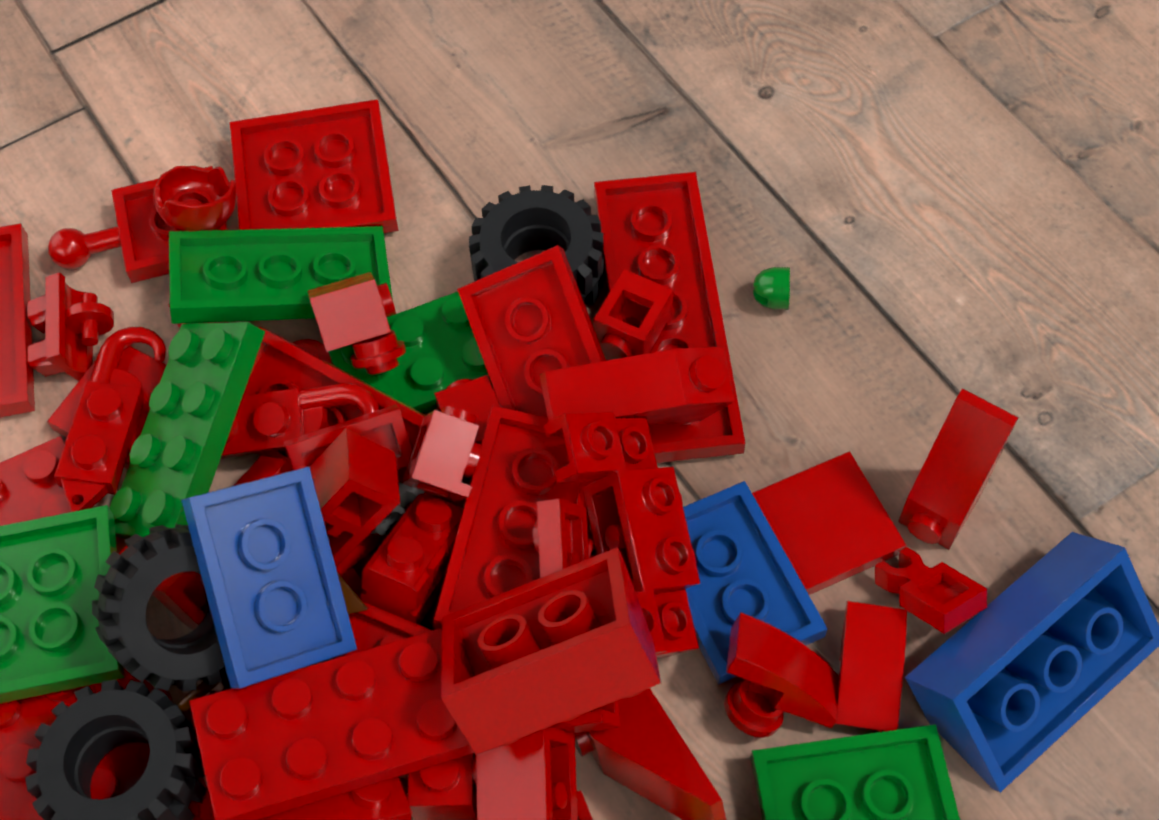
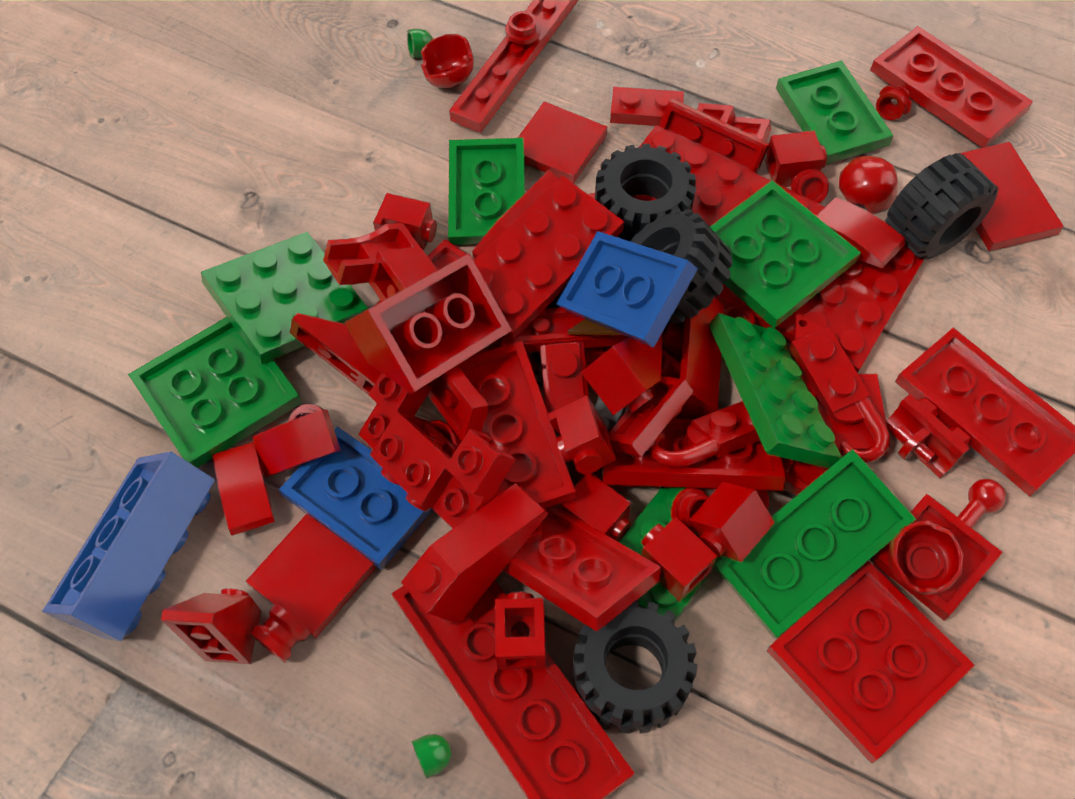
camera: 150 degrees right, 0 degrees up
(429, 311) = (680, 555): none -> red brick
(888, 463) = (280, 633): none -> red wheel
(932, 594) = (208, 543): red plate -> none

